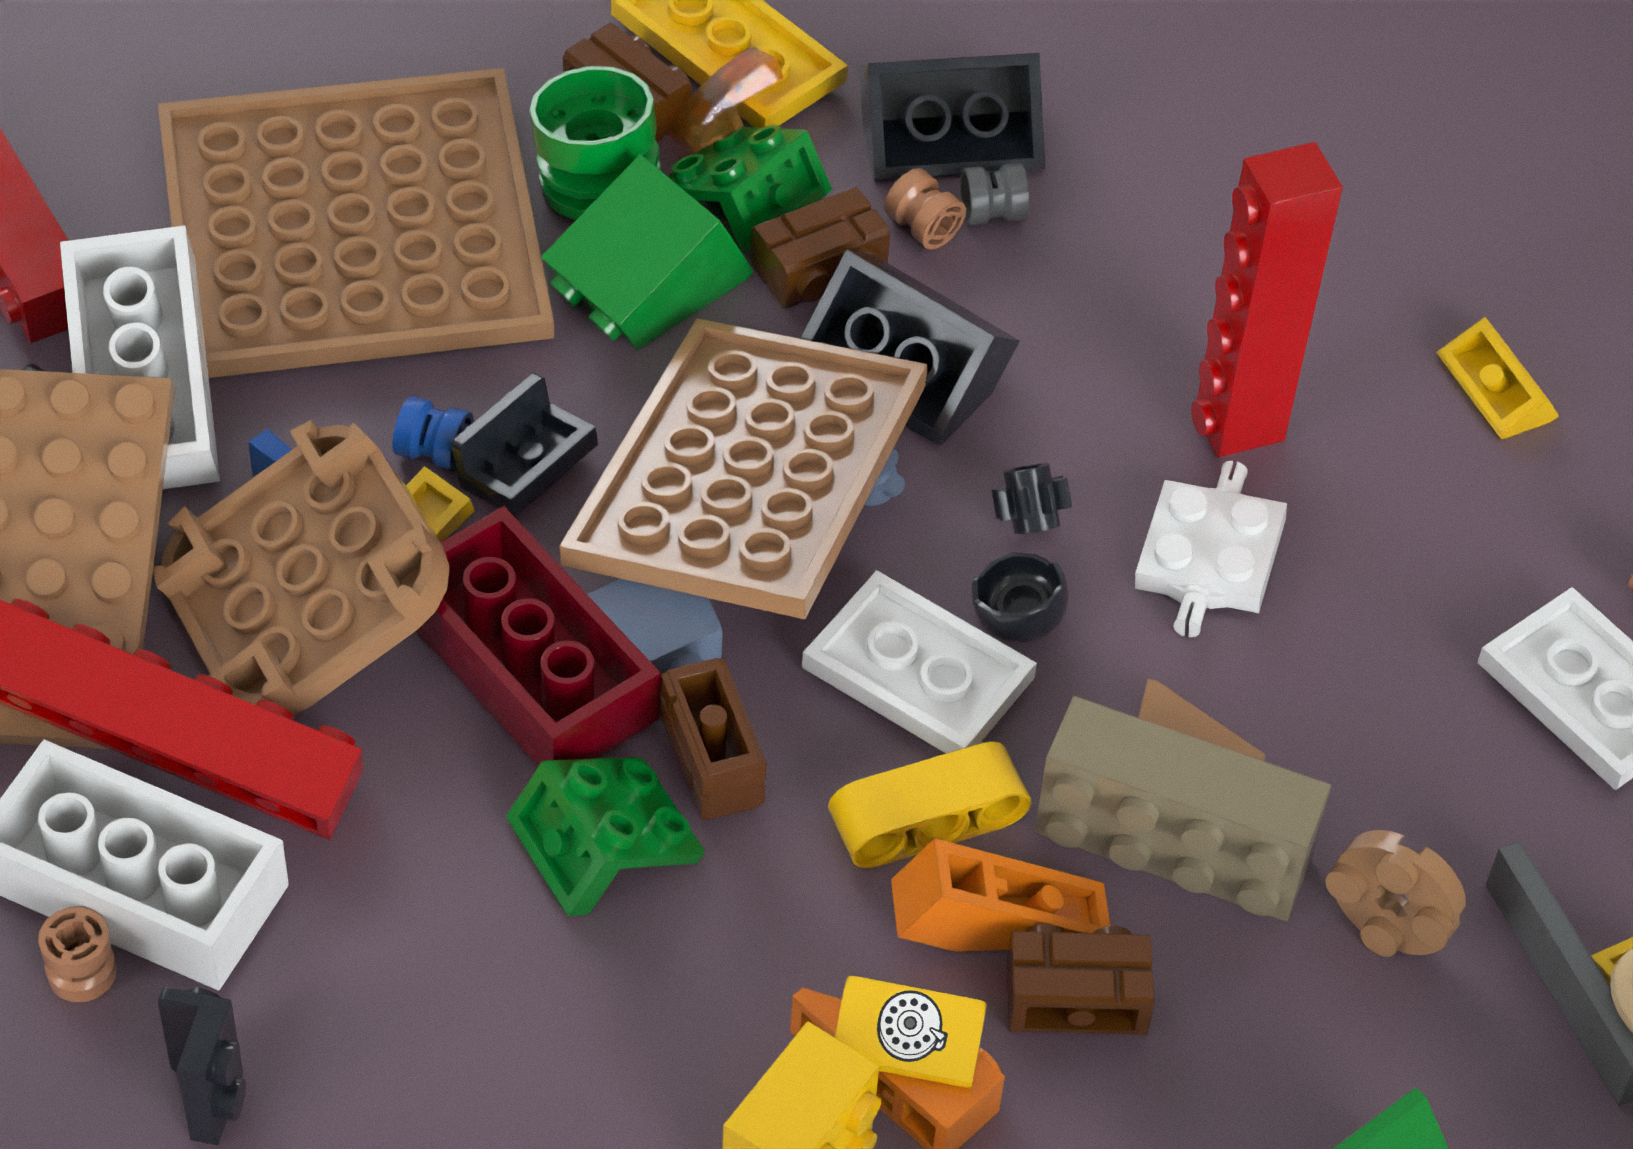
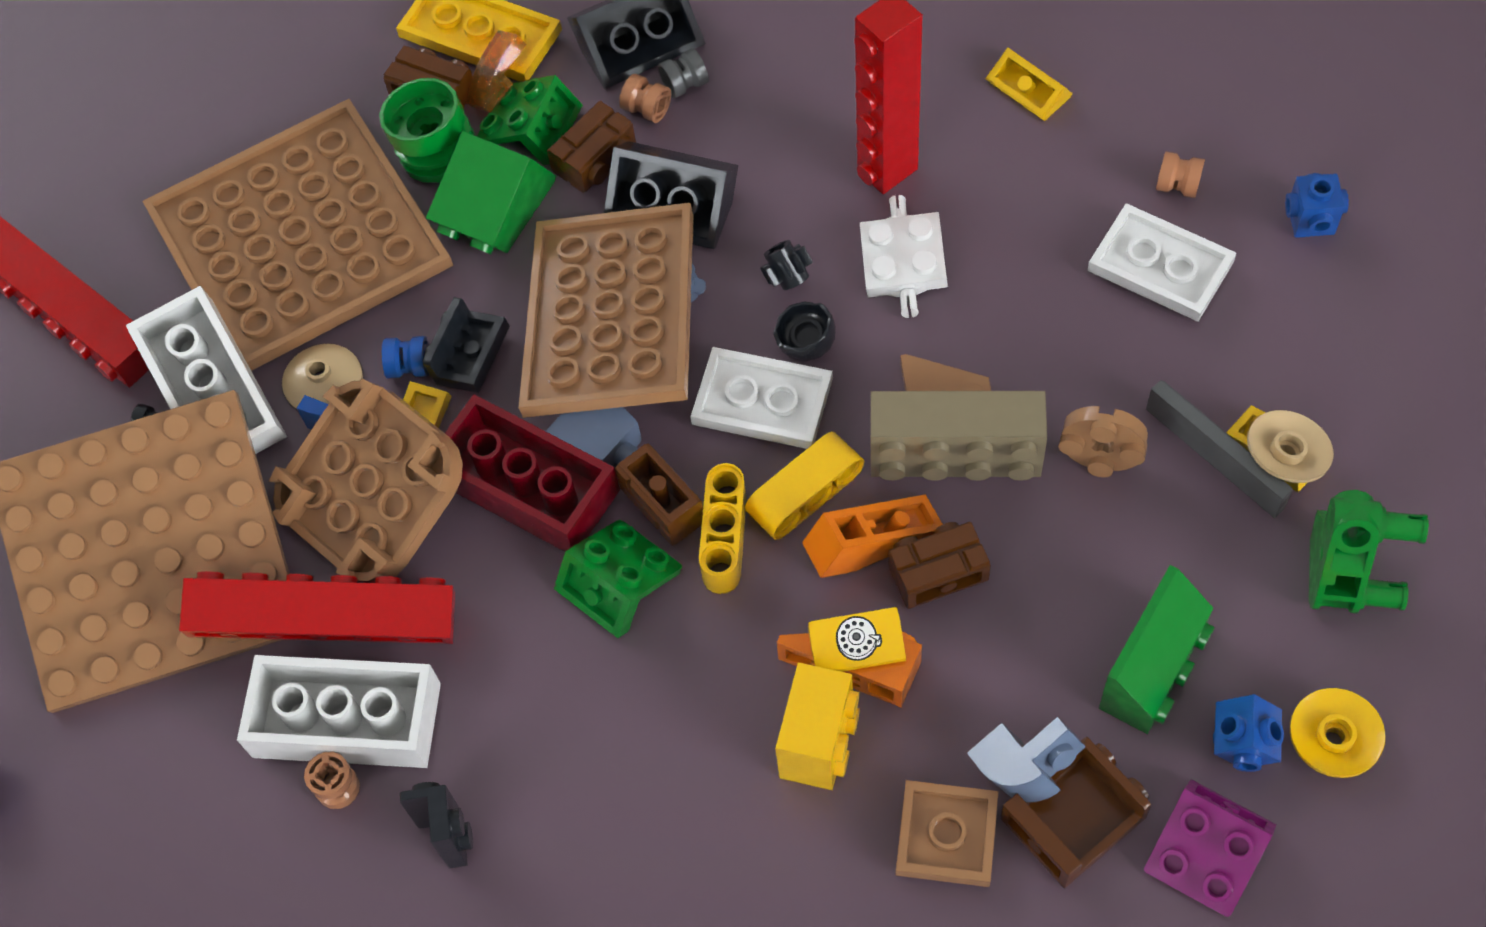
camera: 10 degrees left, 10 degrees up
(297, 401) = (339, 368): none -> tan dish
(777, 844) = (723, 546): none -> yellow beam

